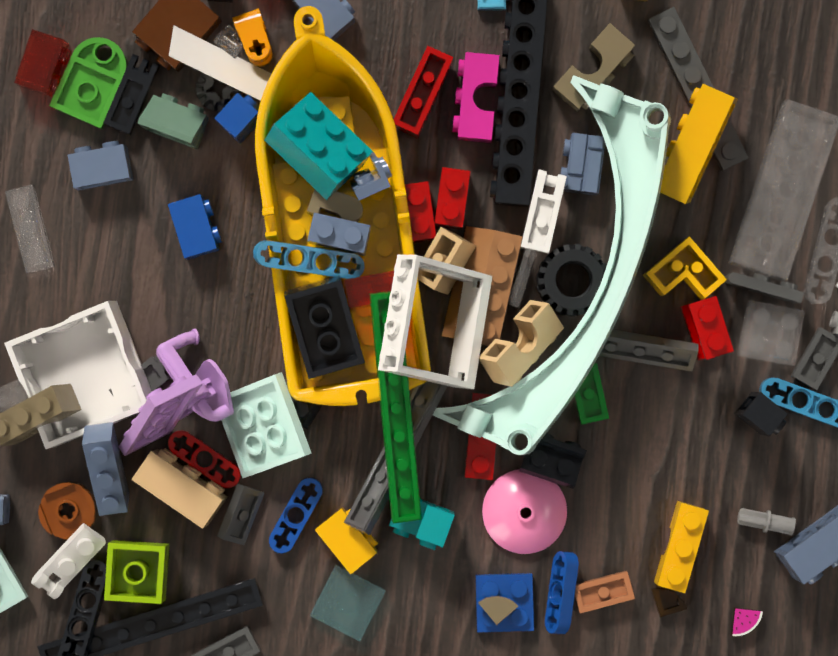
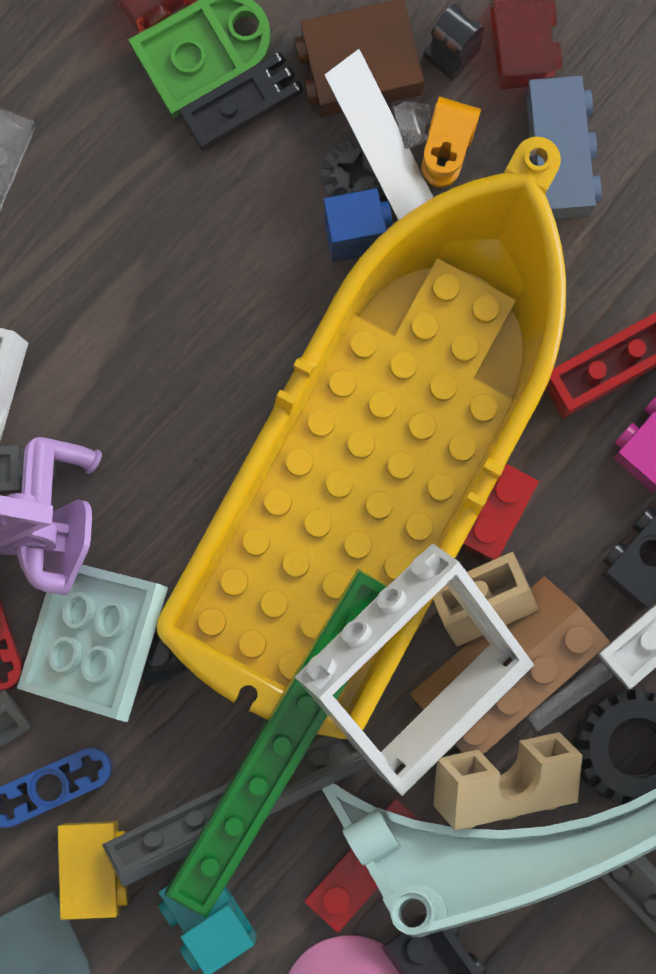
camera: 30 degrees right, 5 degrees down
(100, 166) = (134, 160): sand blue brick -> none
(174, 121) = (270, 171): sand green slope -> none
(194, 226) = (196, 322): blue brick -> none
(309, 256) = (311, 467): dark azure beam -> none
(318, 145) = (431, 329): teal brick -> none
(324, 327) = (265, 569): black brick -> none
(338, 204) = (399, 421): dark tan leg -> none
(339, 234) = (374, 464): sand blue brick -> none
(360, 288) = (349, 552): clear red brick -> none
(370, 182) = (462, 425): sand blue bracket -> none
(452, 198) = (553, 526): red brick -> none
(591, 399) = (543, 925): green plate -> none

